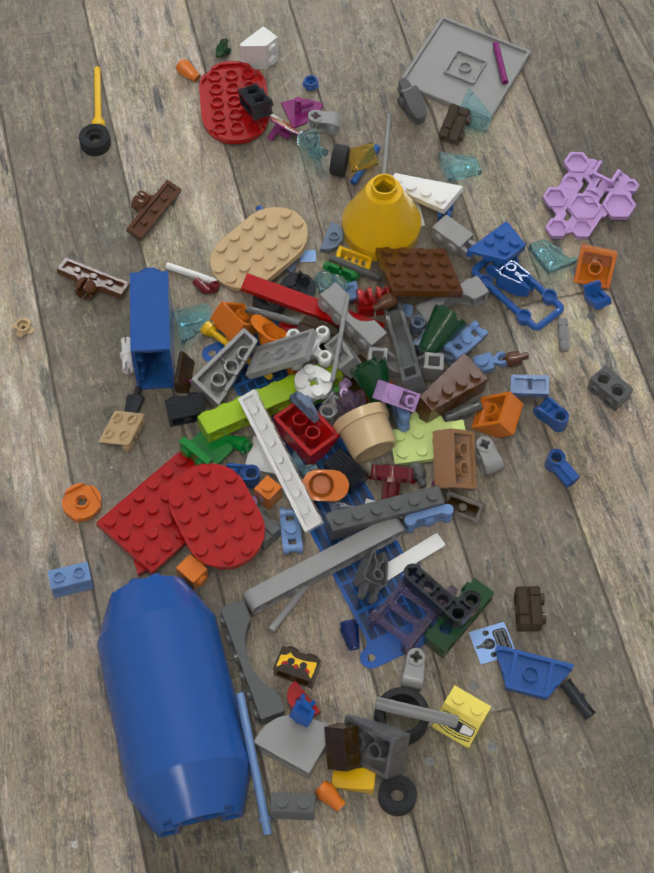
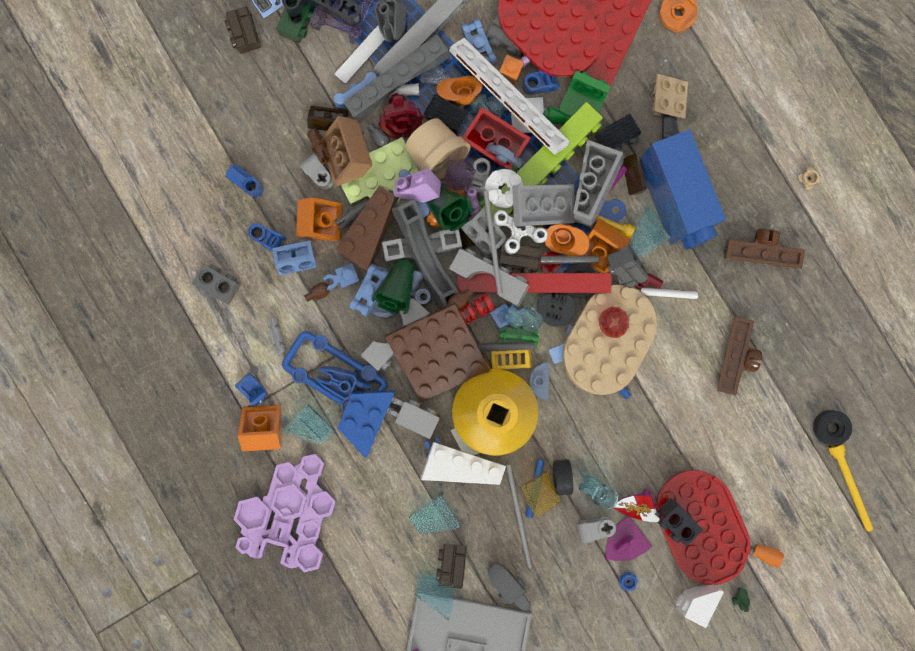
camera: 165 degrees right, 25 degrees up
(223, 291) = (627, 267): none -> dark grey brick
(248, 260) = (605, 321): none -> clear red gear
(479, 476) = (319, 146): none -> reddish brown pin

